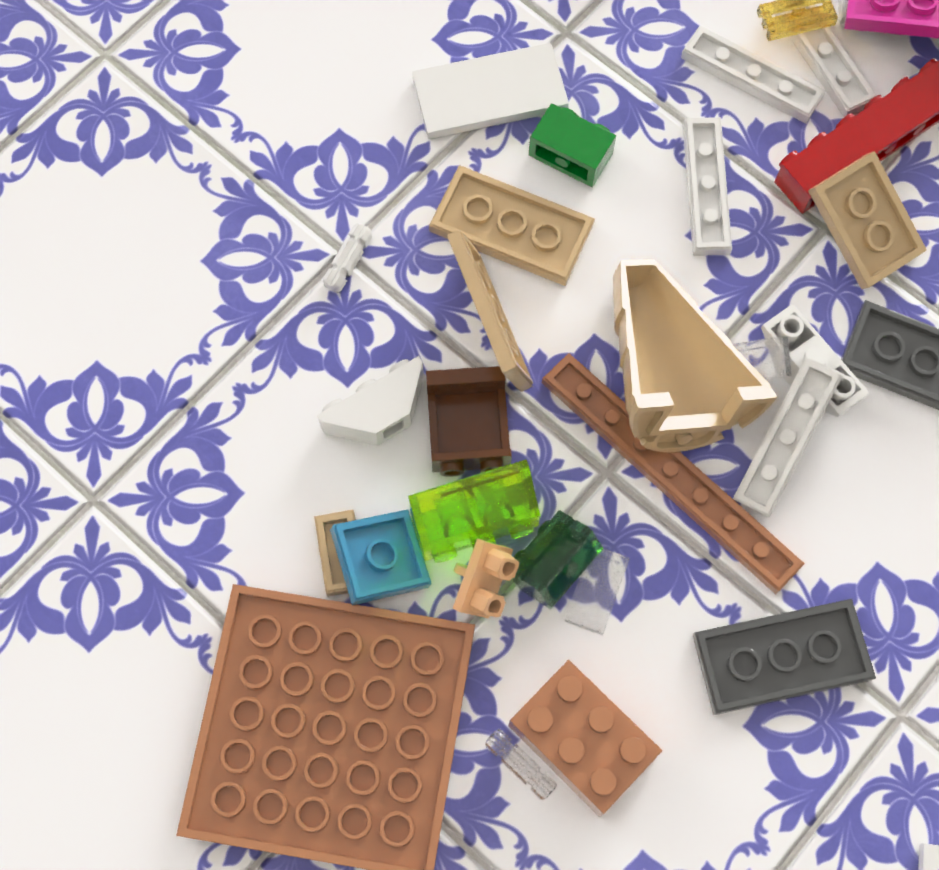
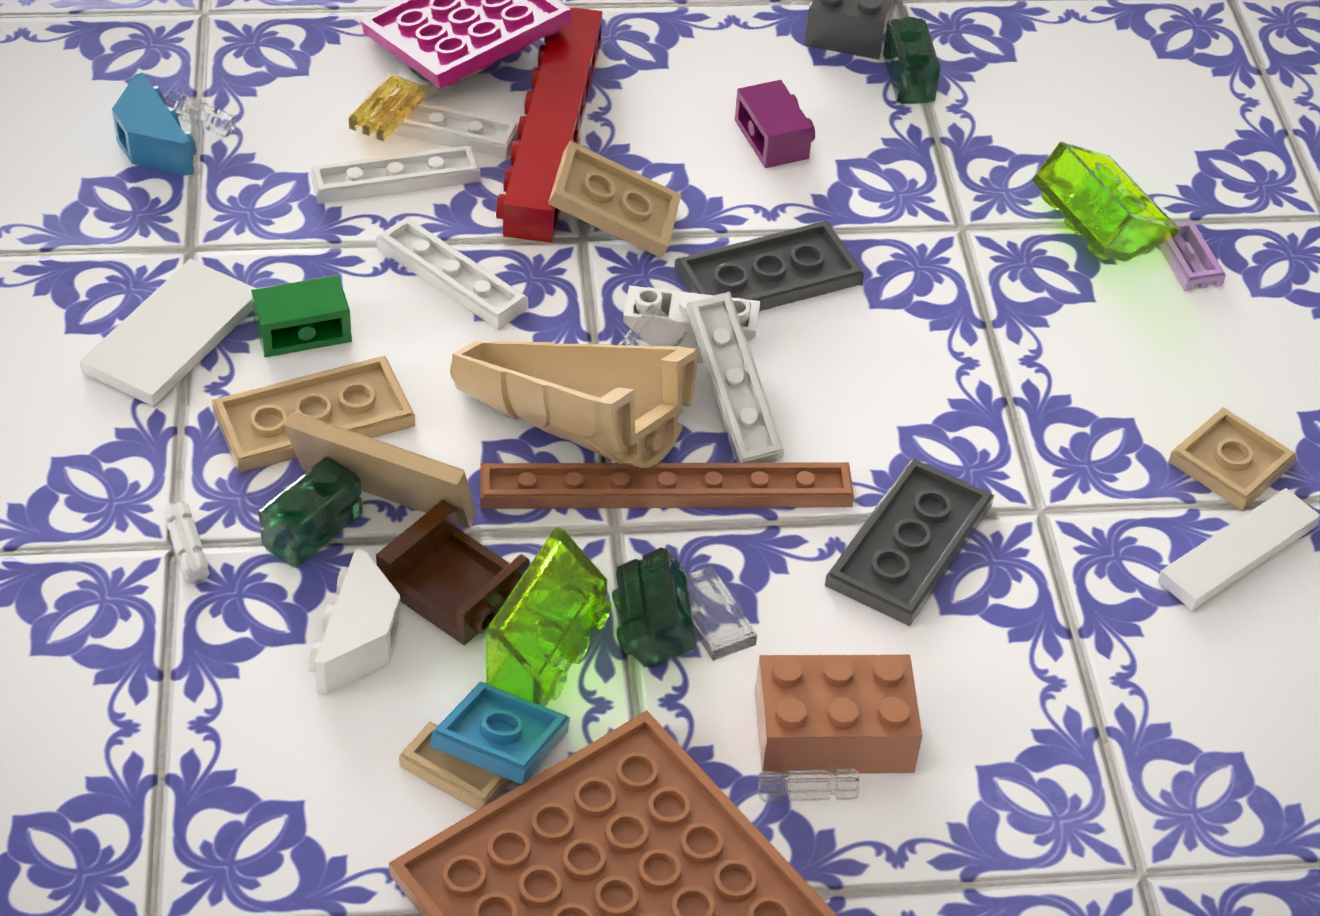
camera: 50 degrees left, 25 degrees down
(429, 302) = (310, 512): none -> clear green brick
(483, 578) = (608, 670): light nougat hips -> none

